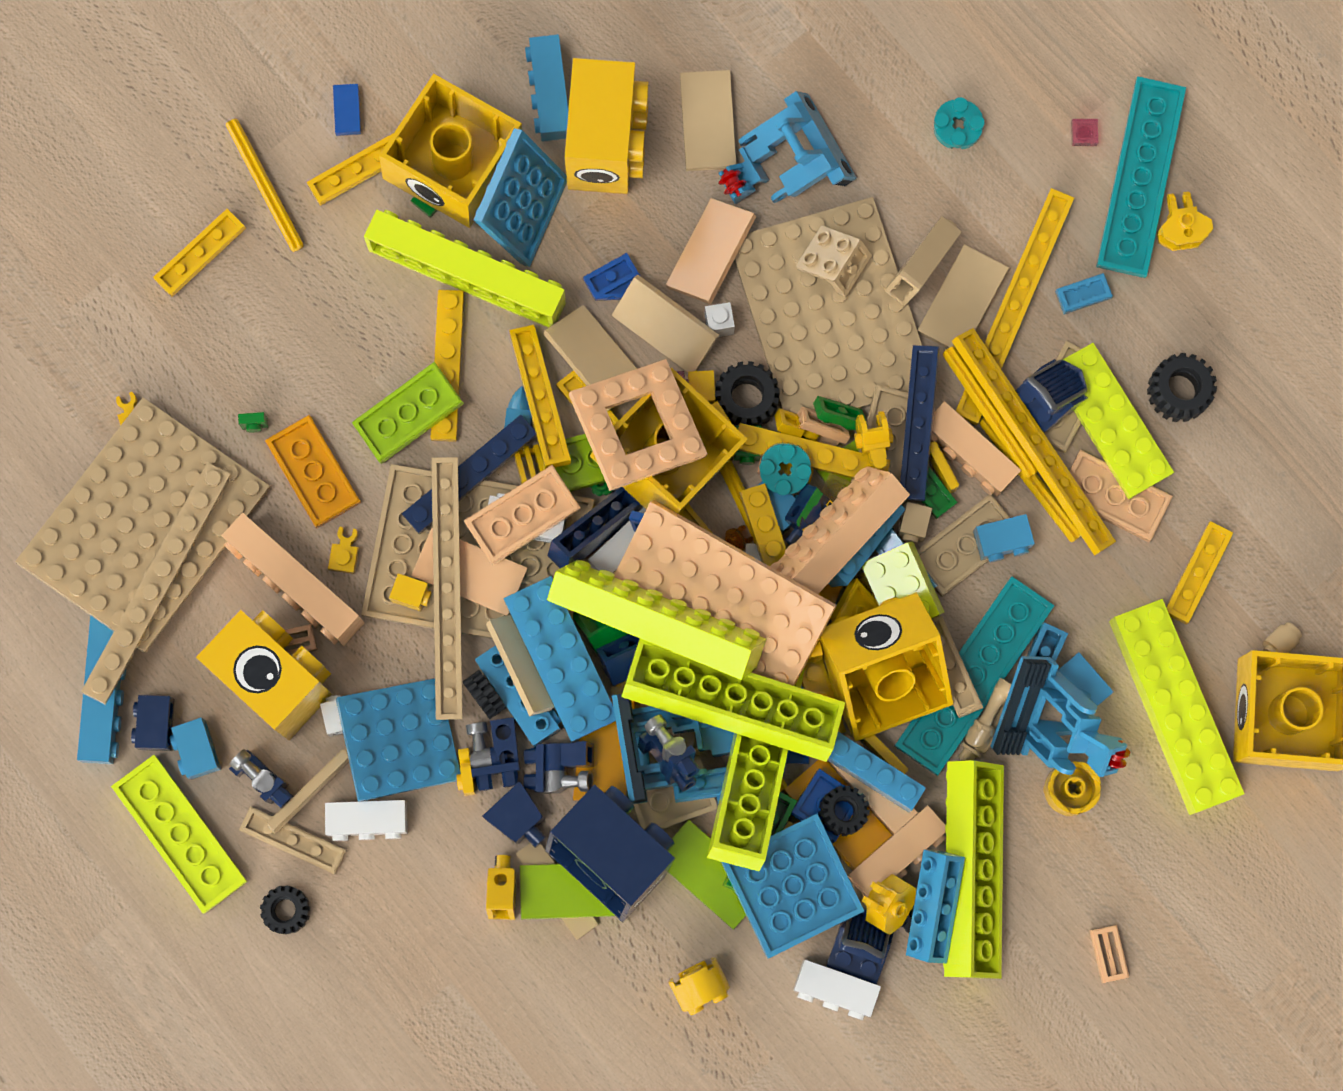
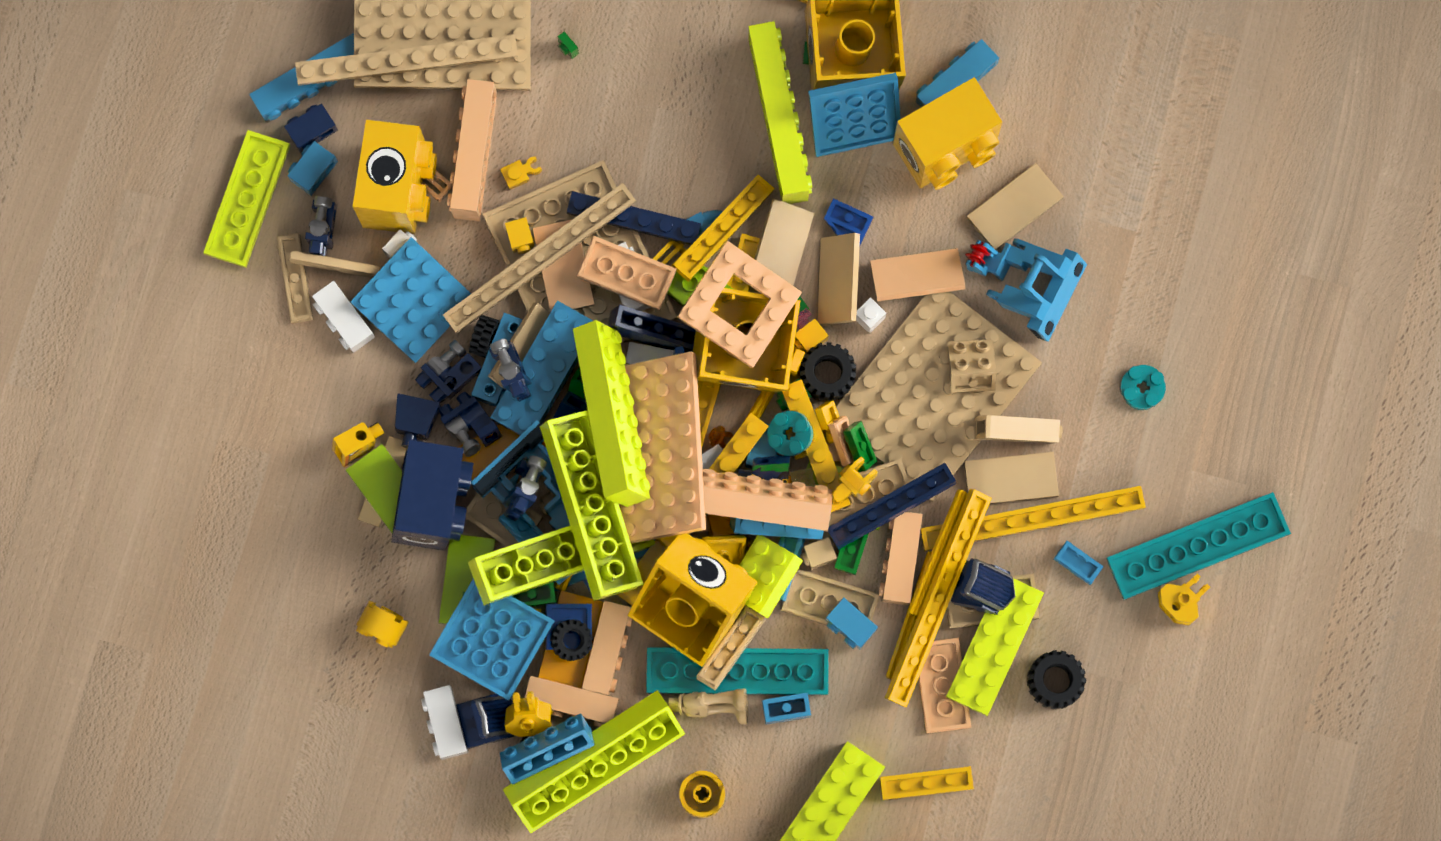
camera: 60 degrees right, 0 degrees up
(301, 910) = (240, 293): black tyre -> none
(312, 471) = (562, 111): light orange tile -> none
(407, 413) = (648, 146): lime tile -> none
(448, 354) = (703, 149): yellow plate -> none
(465, 780) = (415, 364): yellow plate -> none
(544, 686) = (511, 369): none -> hips
(875, 773) = (613, 641): dark azure brick -> none
(884, 753) = (635, 646): yellow tile -> none
(942, 468) = (873, 546): yellow tile -> none
(1023, 730) = (718, 730): dark azure container -> none
(1084, 132) = (1202, 482): clear pink plate -> none
(1085, 678) = (784, 751): dark azure brick -> none

